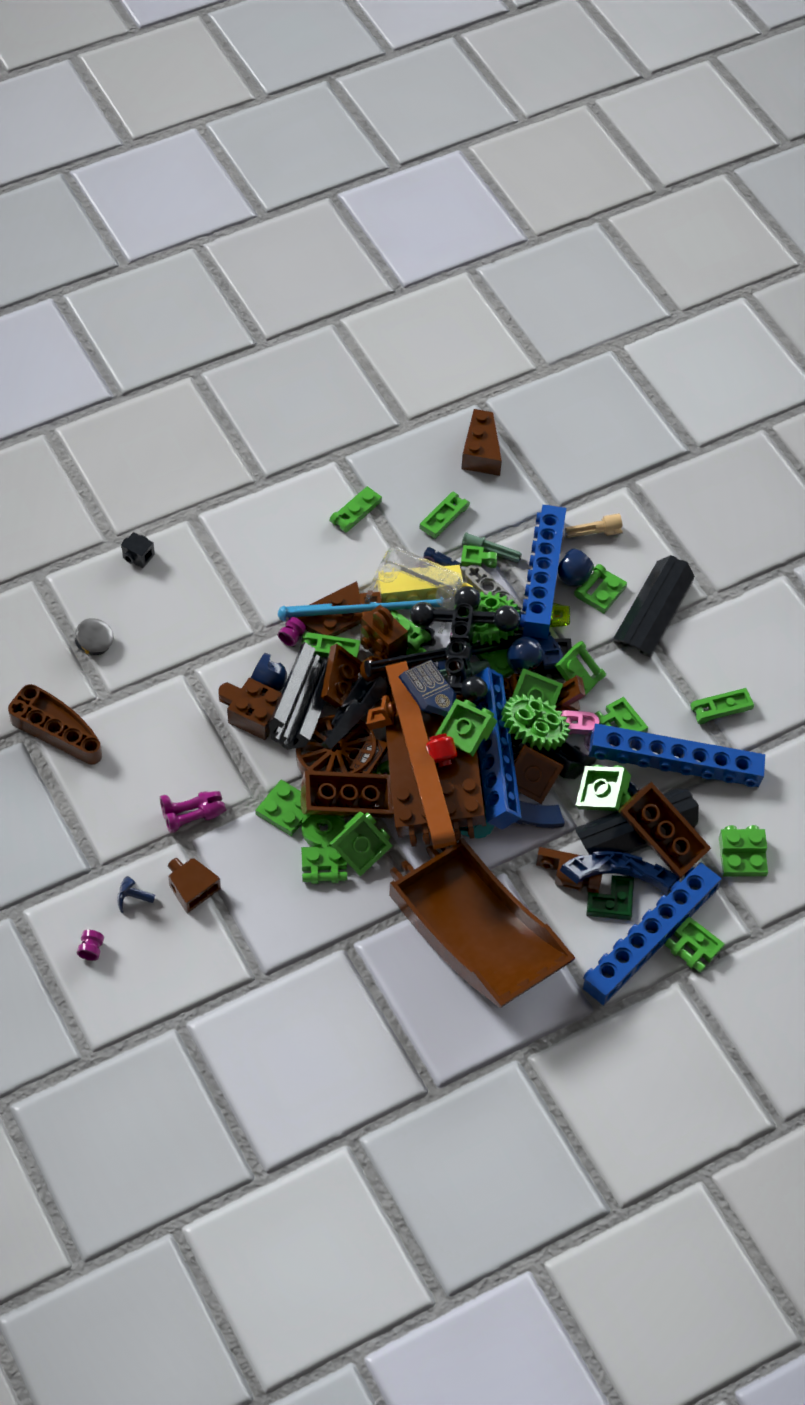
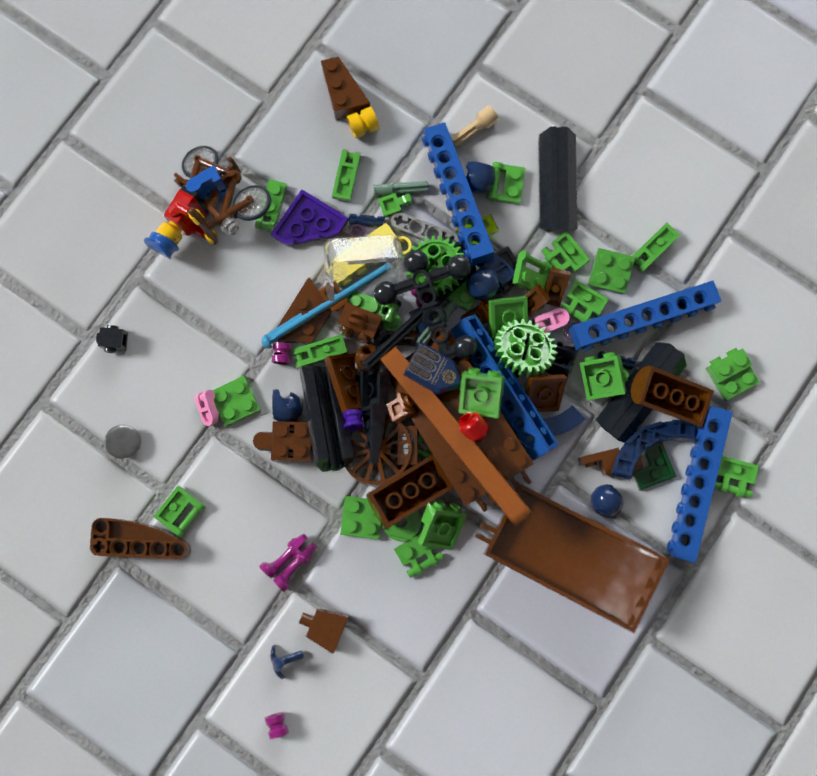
camera: 25 degrees left, 25 degrees up
(110, 713) = (174, 507): none -> bright green plate
(192, 644) = (207, 408): none -> bright pink plate
(221, 653) = (235, 401): none -> bright green plate
(287, 471) = (203, 191): none -> piece
(328, 708) = (353, 420): none -> dark purple wheel
(382, 532) = (308, 221): none -> dark purple plate
(486, 477) = (364, 122): none -> yellow wheel
(545, 899) = (607, 501): none -> dark blue helmet
(599, 692) = (556, 285): none -> reddish brown slope
(631, 670) = (568, 250): none -> bright green plate
(665, 705) = (611, 270): none -> bright green plate

